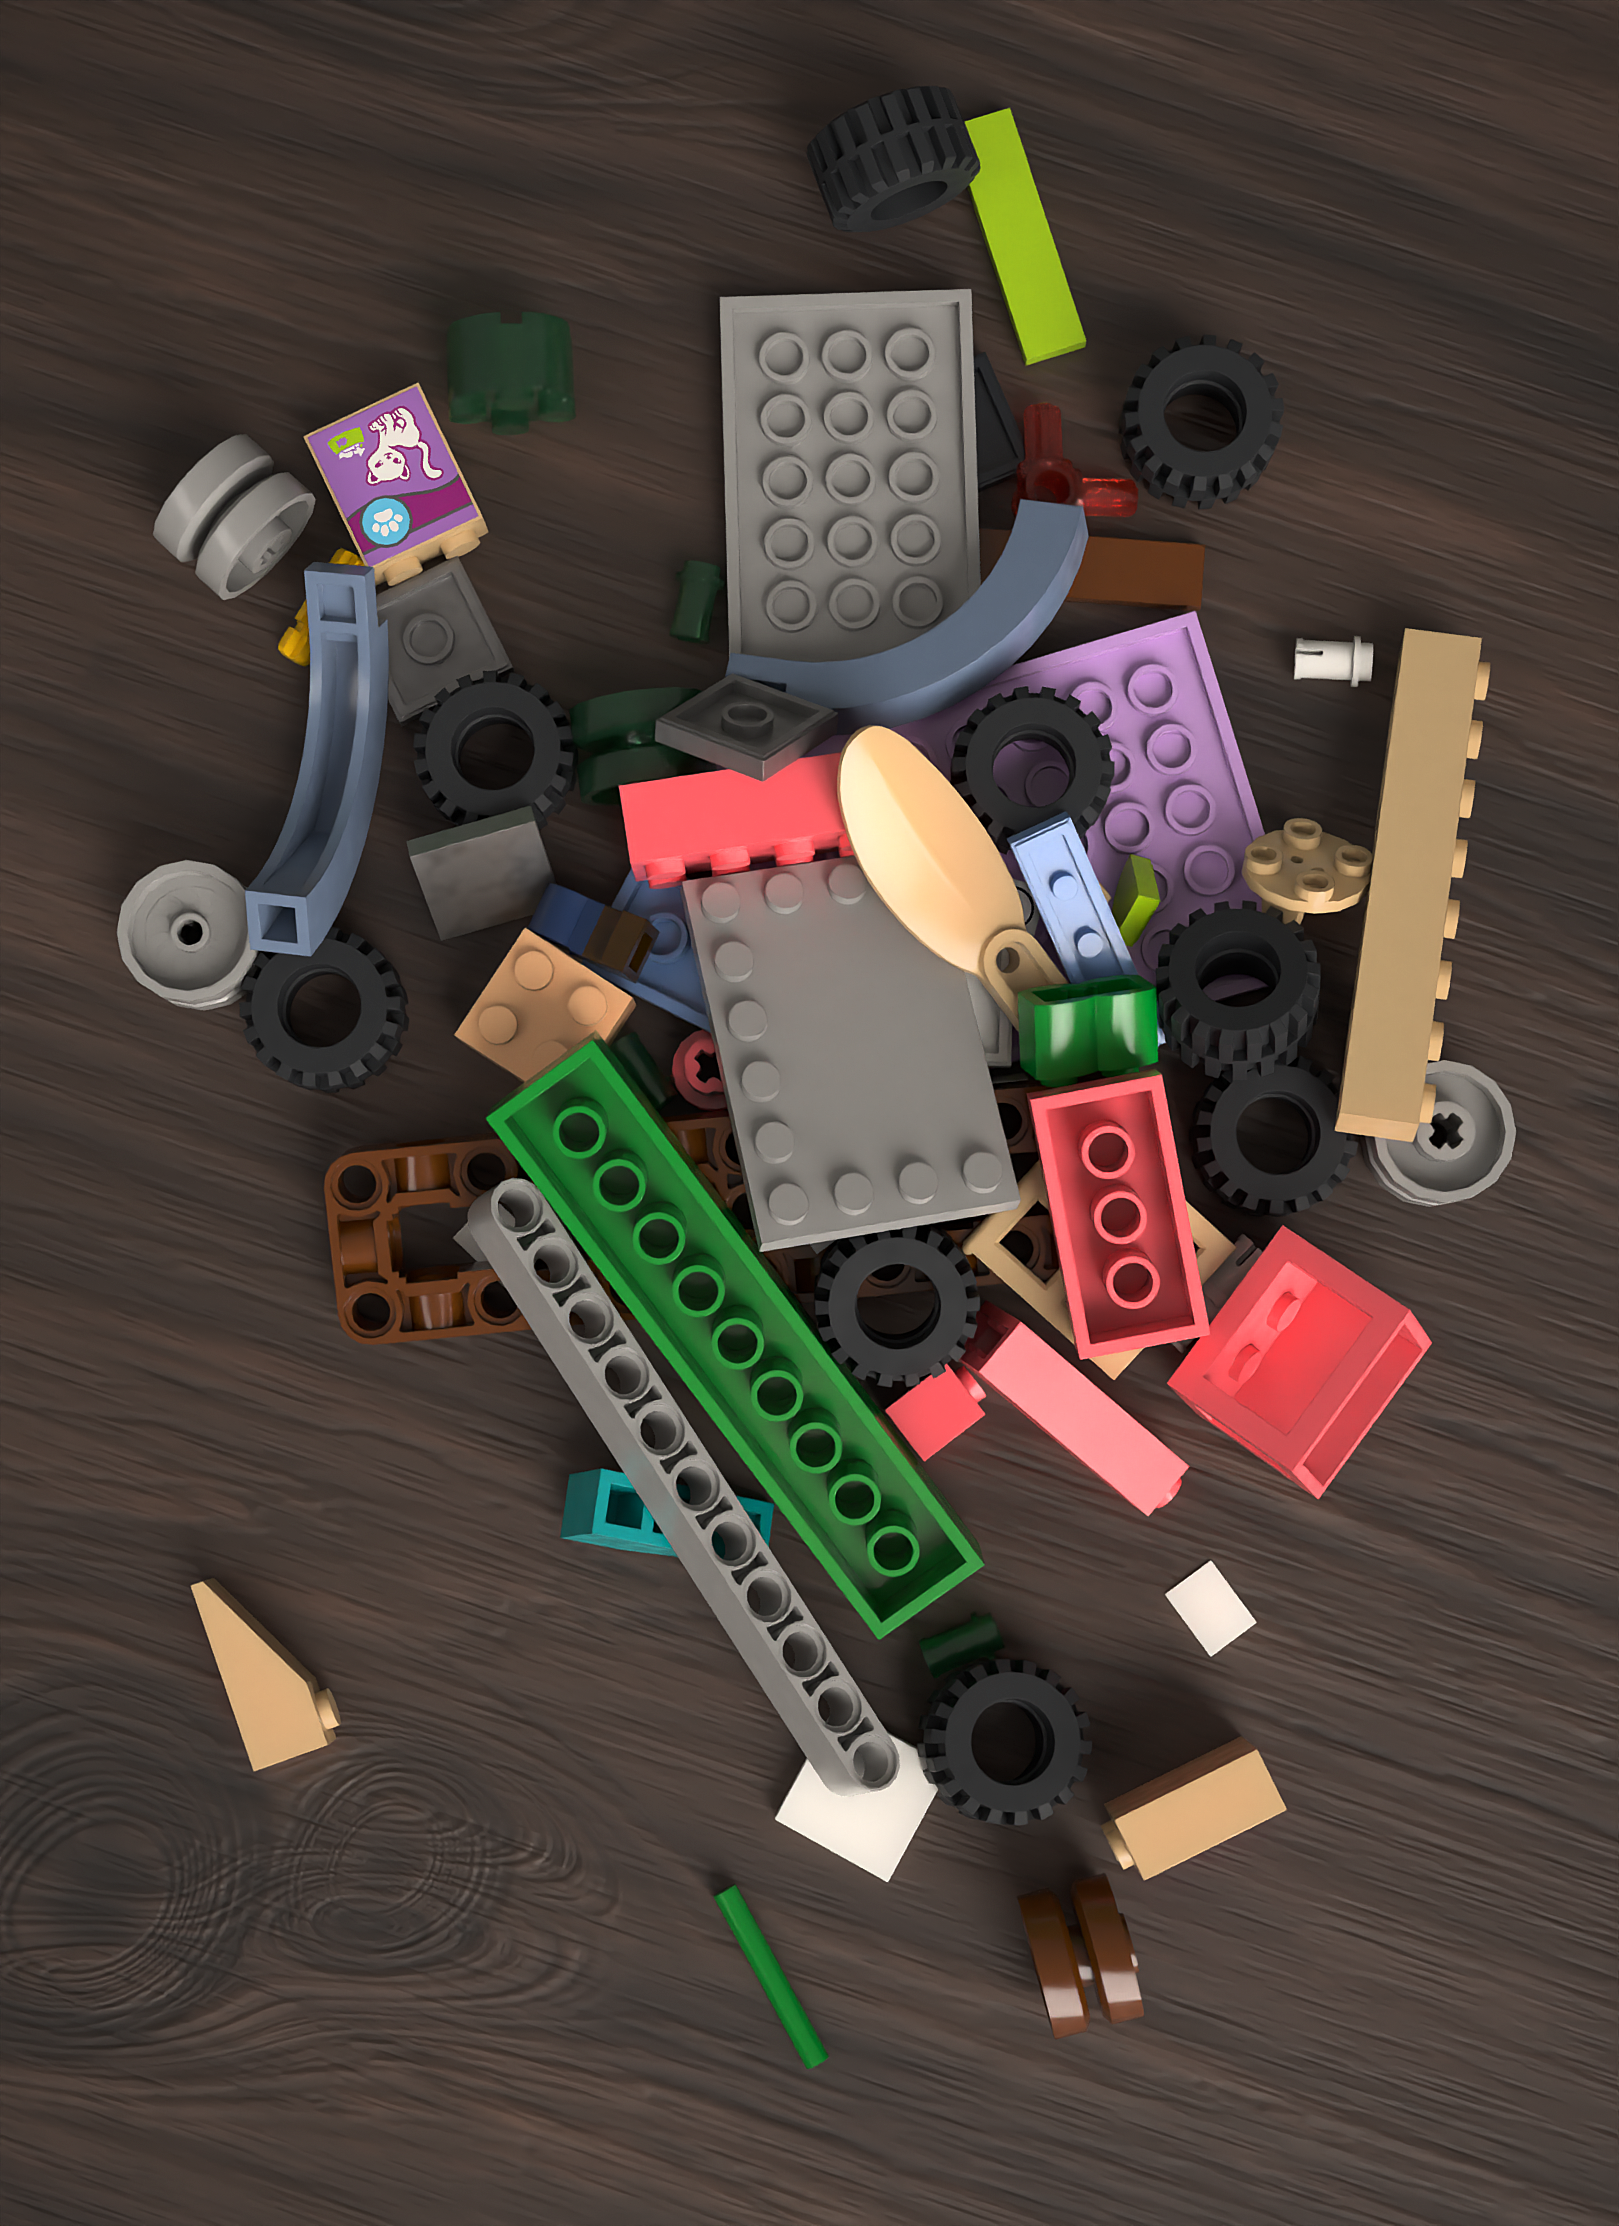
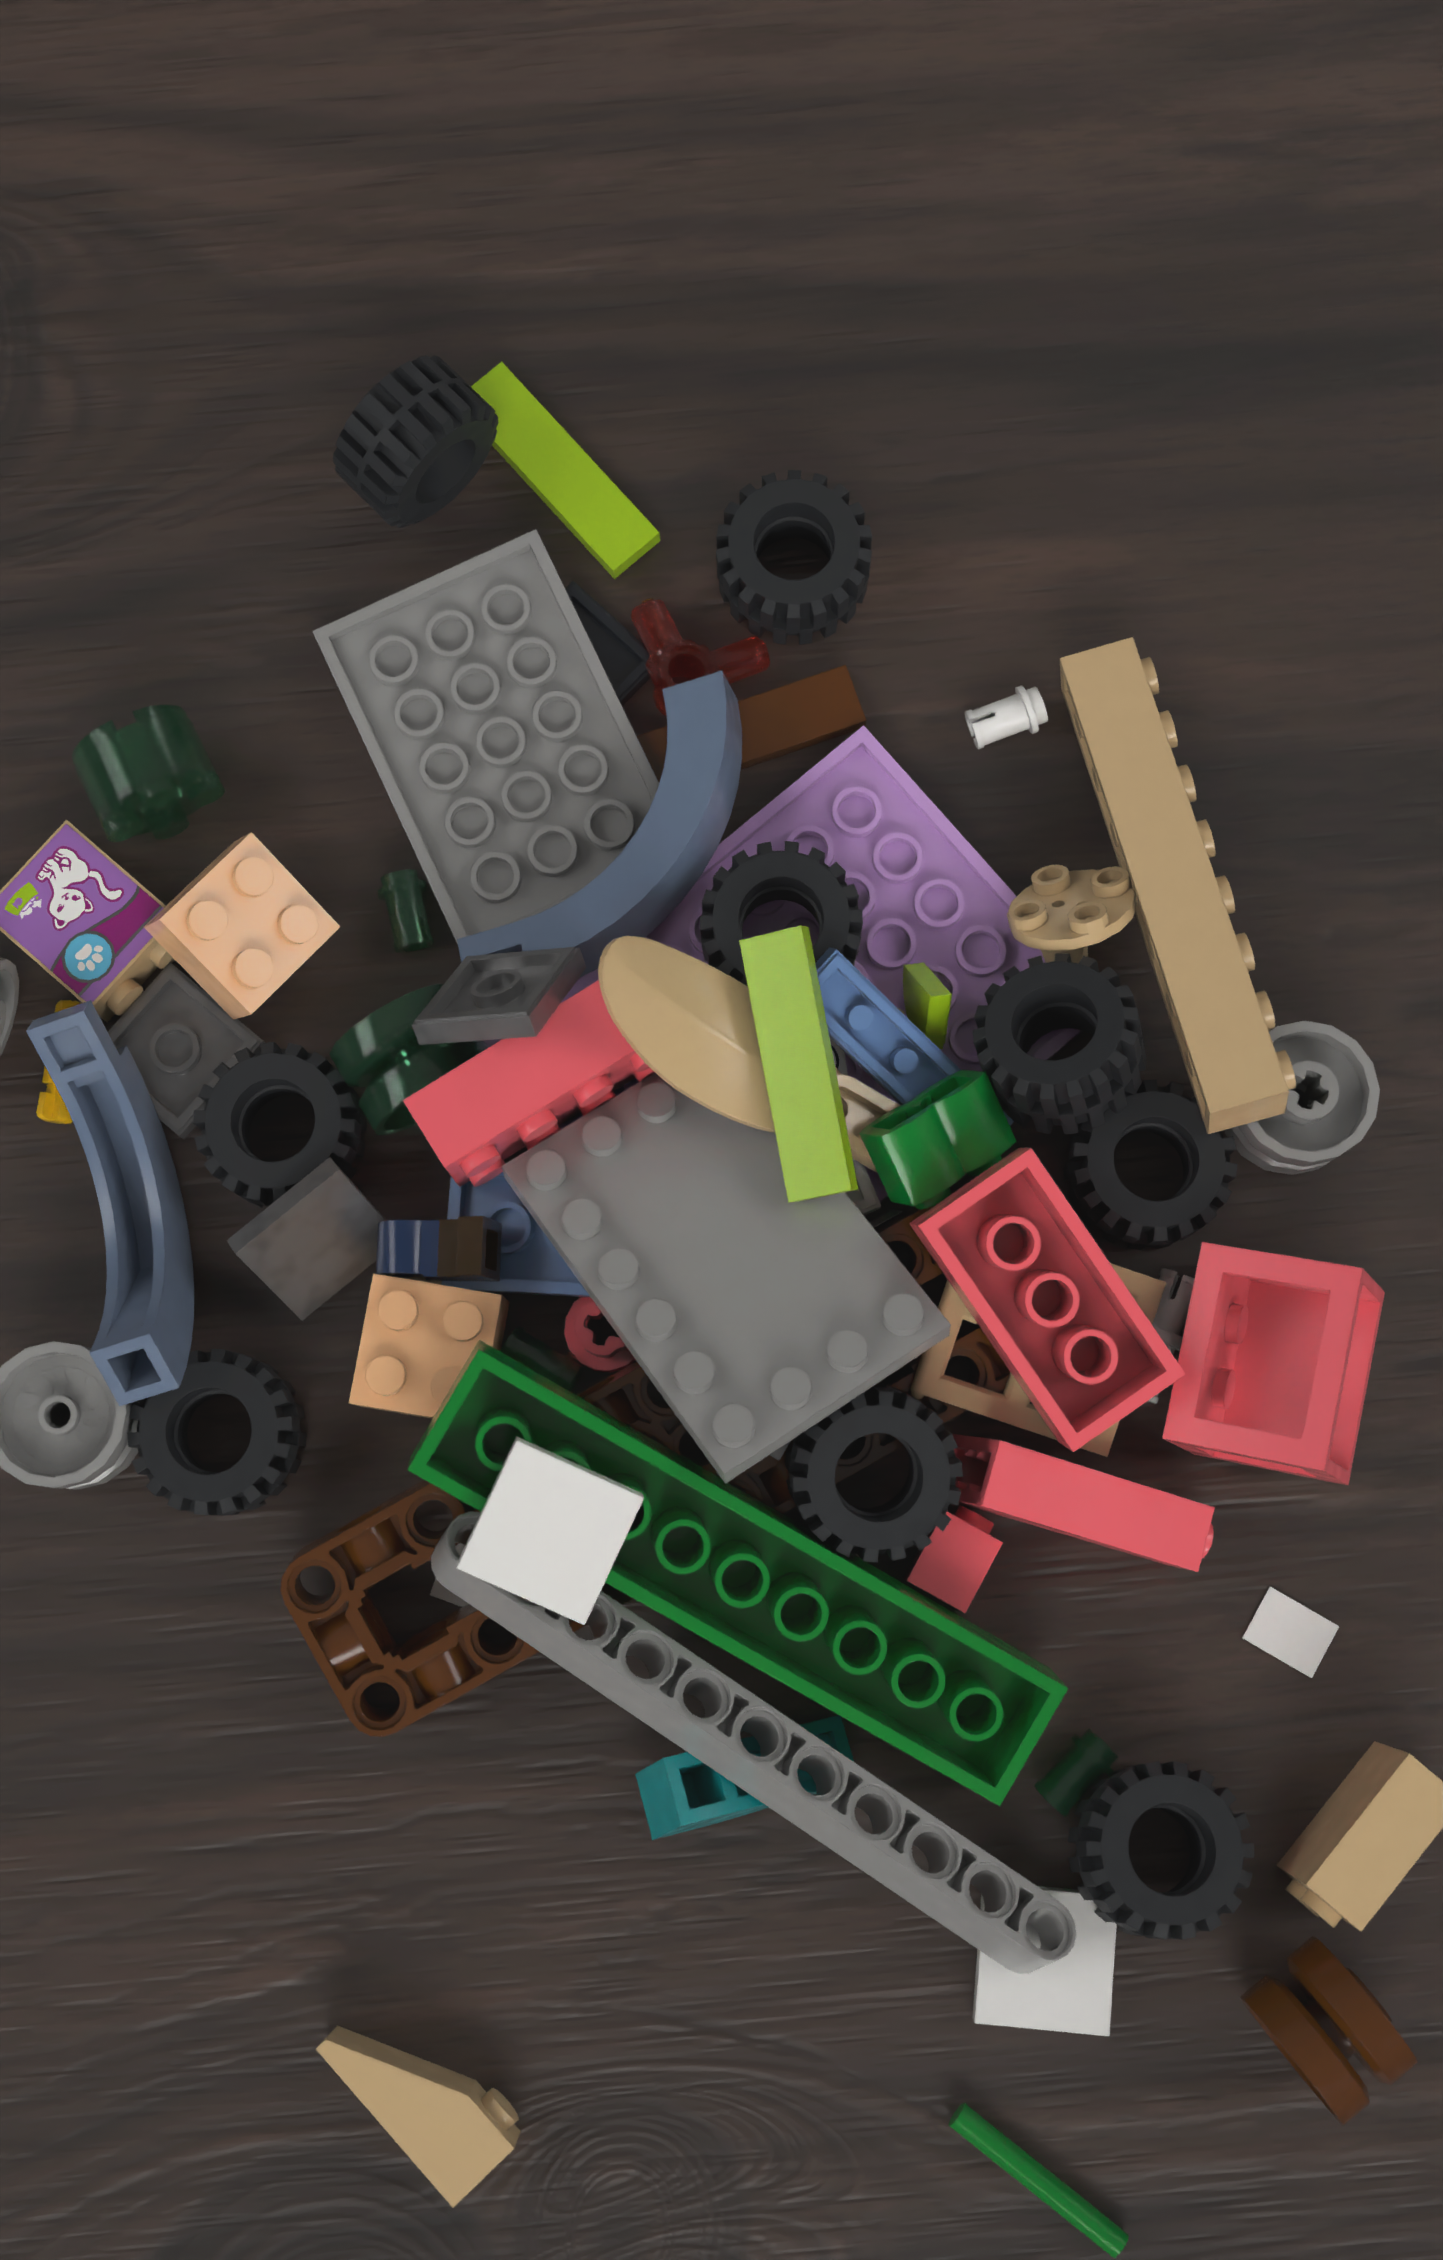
camera: 20 degrees left, 5 degrees down
(538, 555) = (242, 927): none -> light nougat brick
(588, 1225) = (550, 1530): none -> white tile
(989, 906) = (798, 1064): none -> lime tile

